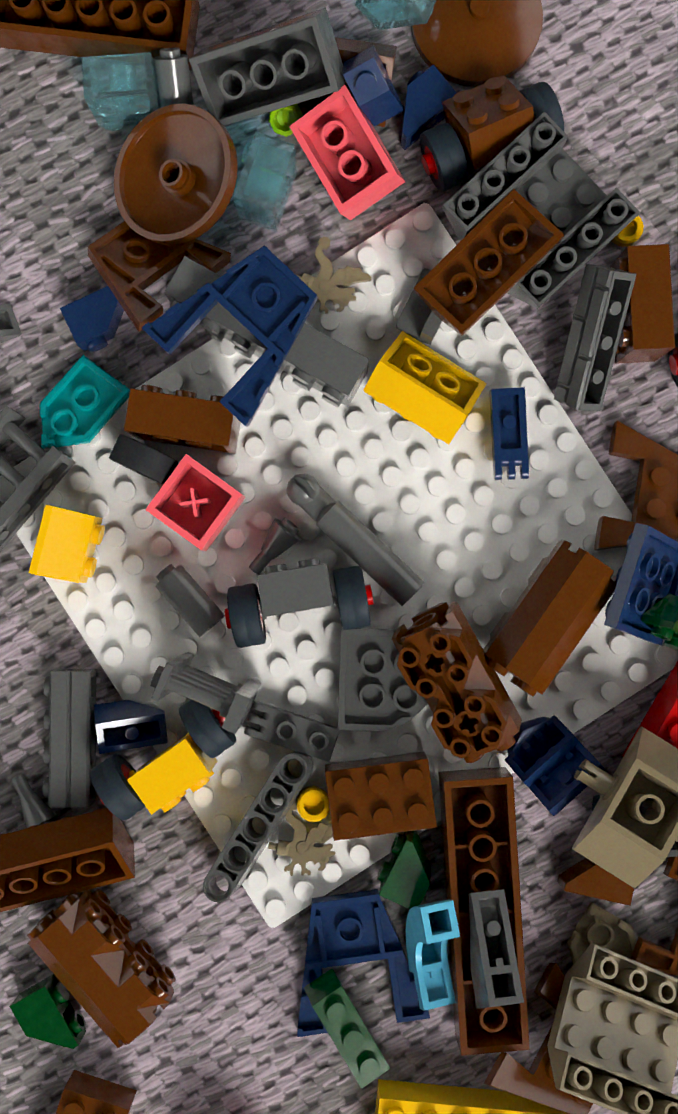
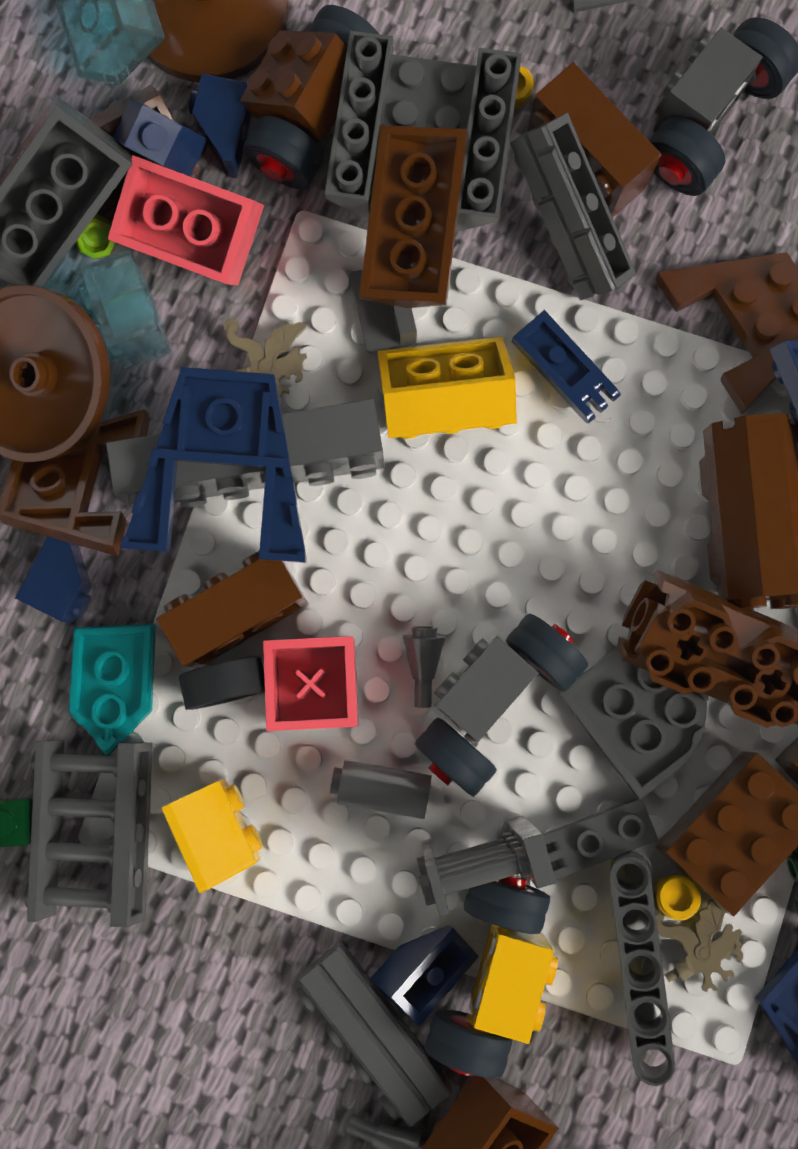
camera: 40 degrees left, 5 degrees down
(354, 538) = (500, 592): dark grey piece -> none

